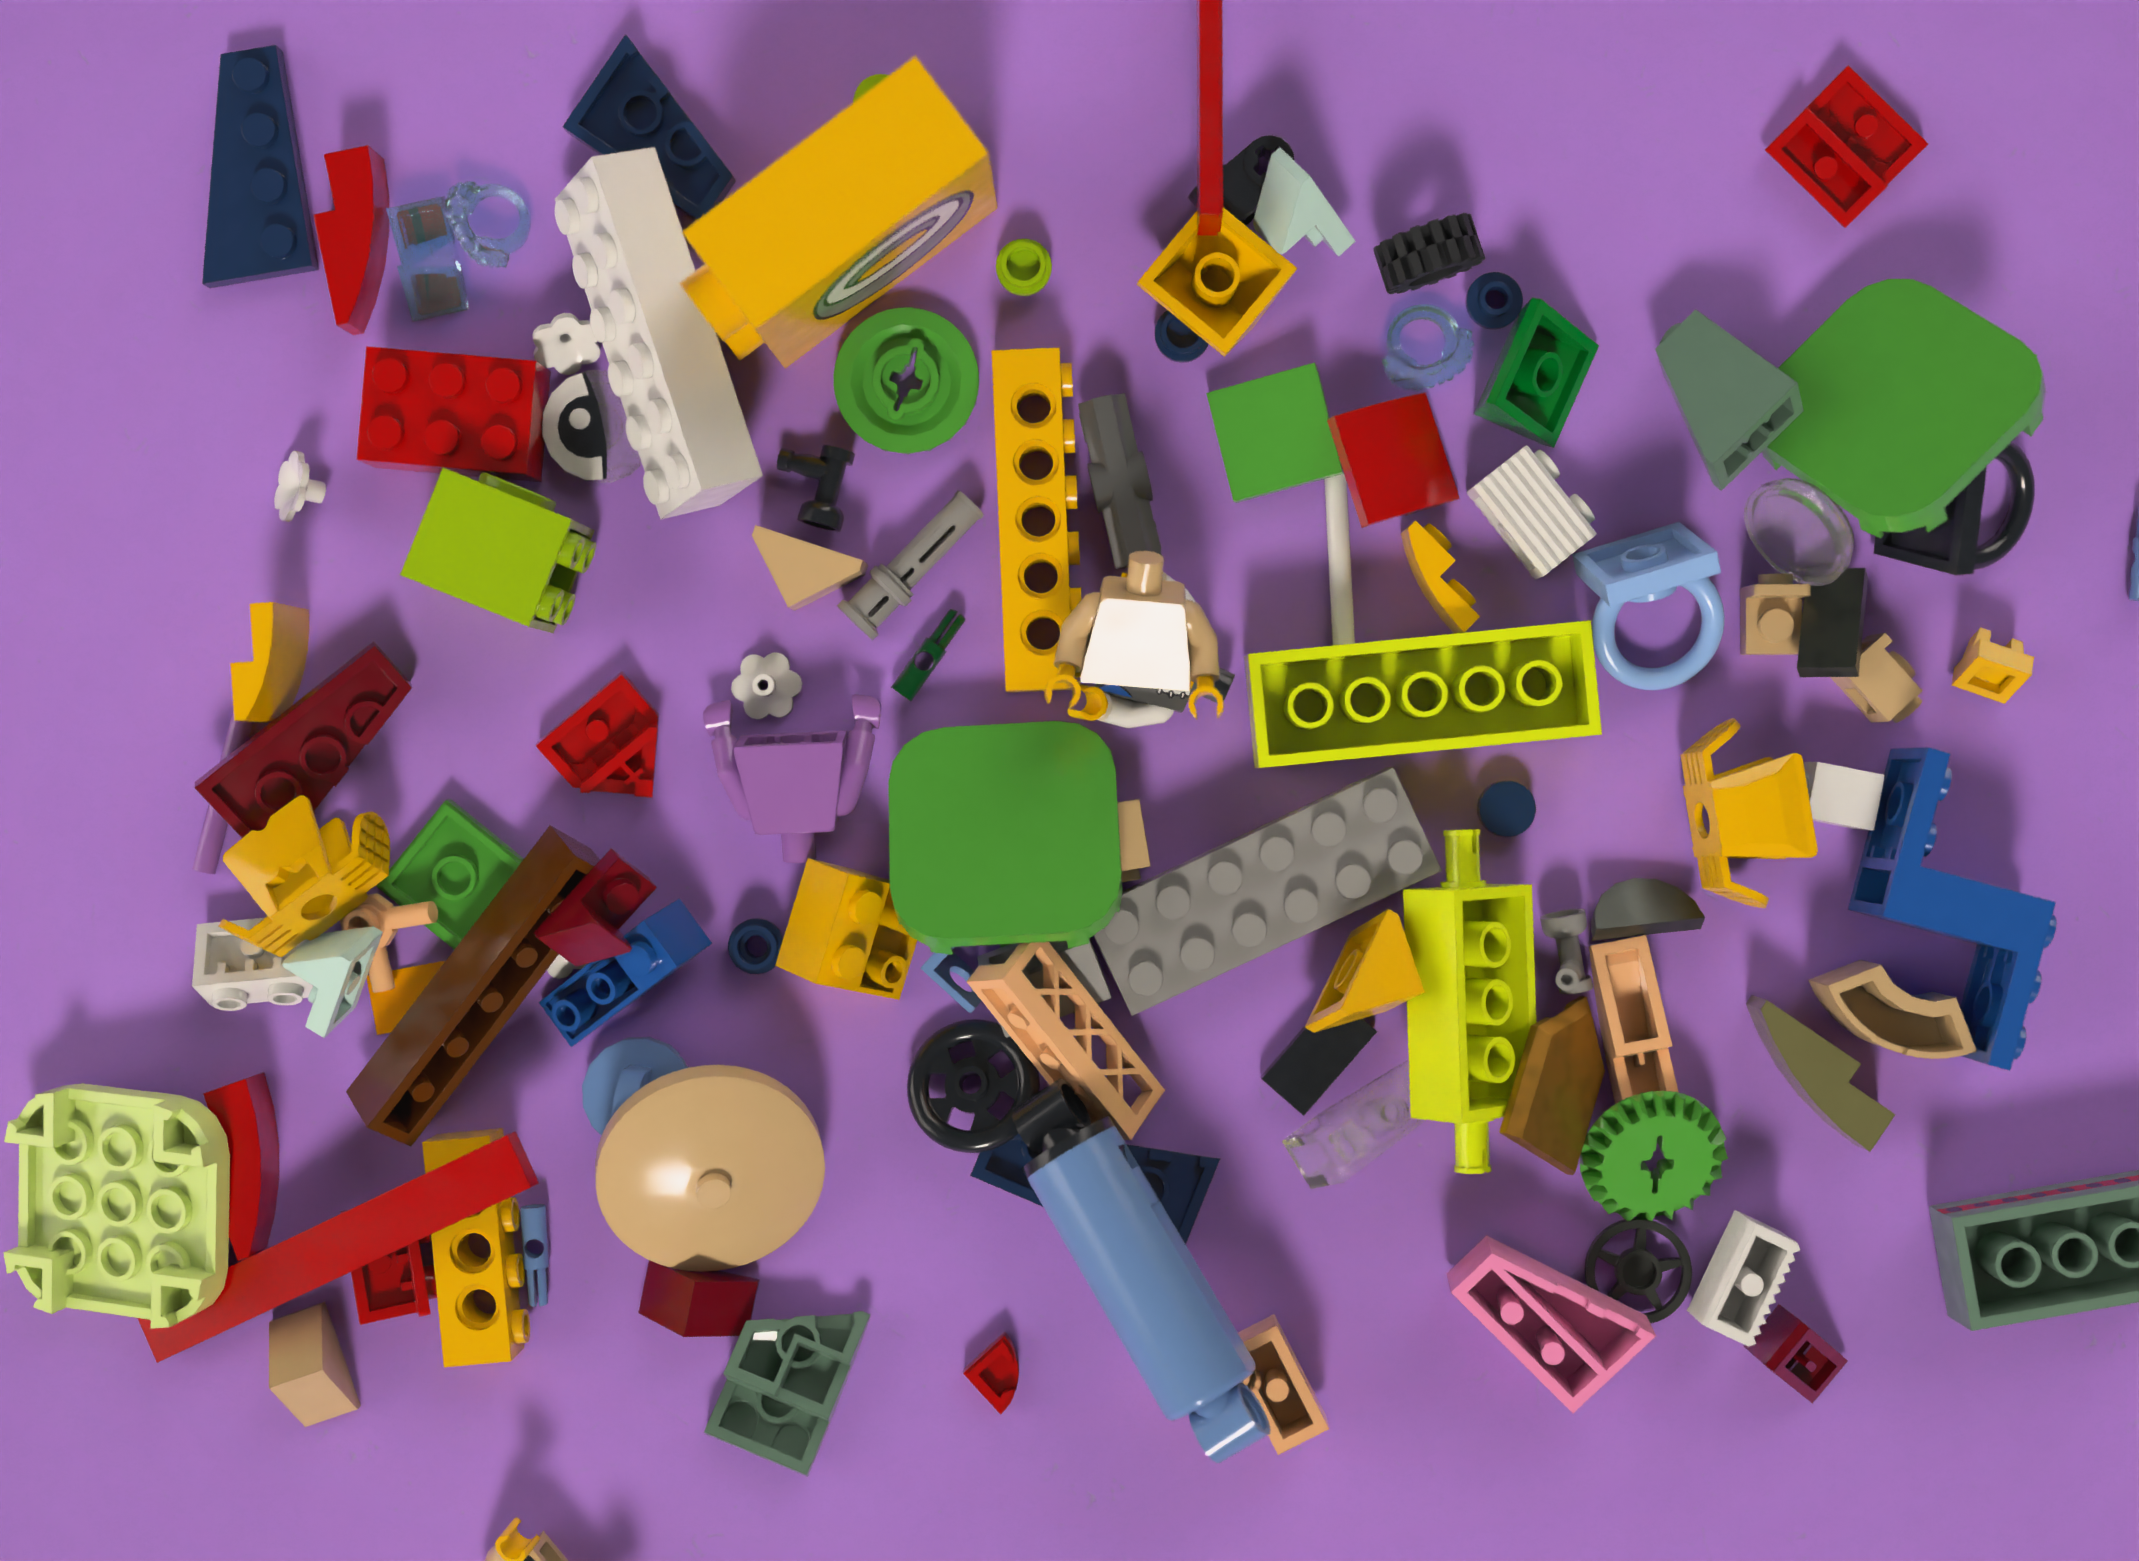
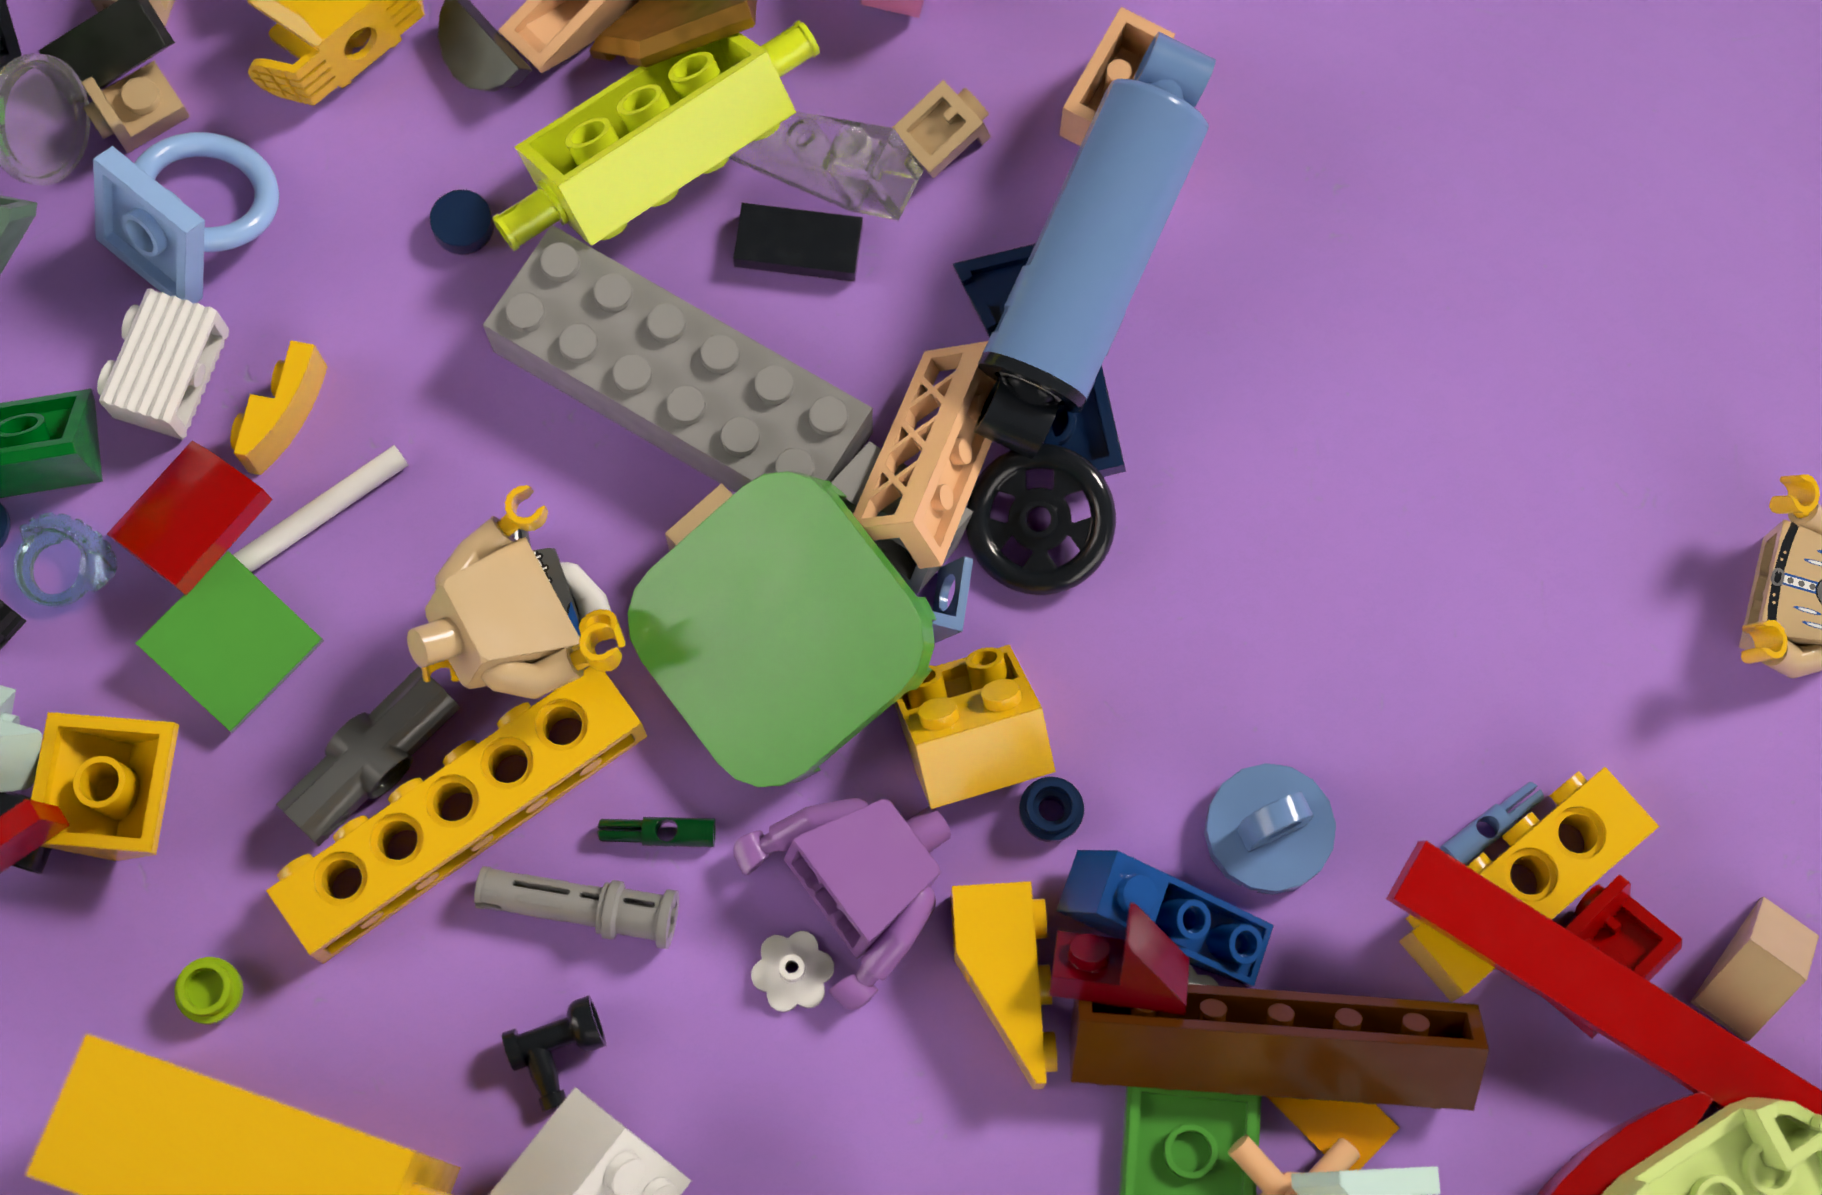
camera: 125 degrees left, 15 degrees down
(607, 742) = (952, 1090): red slope -> none
(676, 837) = (997, 956): none -> yellow slope
(698, 1301) = (1422, 645): dark red slope -> none
(709, 1168) = (1288, 702): tan dish -> none
(786, 1386) = (1438, 509): sand green slope -> none
(805, 569) = (649, 1004): tan slope -> none
(887, 346) = (357, 1007): bright green gear -> none
(996, 1372) = (1287, 336): red tile -> none
(1177, 340) = (190, 794): dark blue plate -> none
(1334, 1225) = (943, 127): none -> tan bracket
(1369, 975) = (690, 229): yellow slope -> none
(1422, 694) = (400, 349): neon yellow brick -> none
(1565, 928) = (538, 105): light grey piece -> none

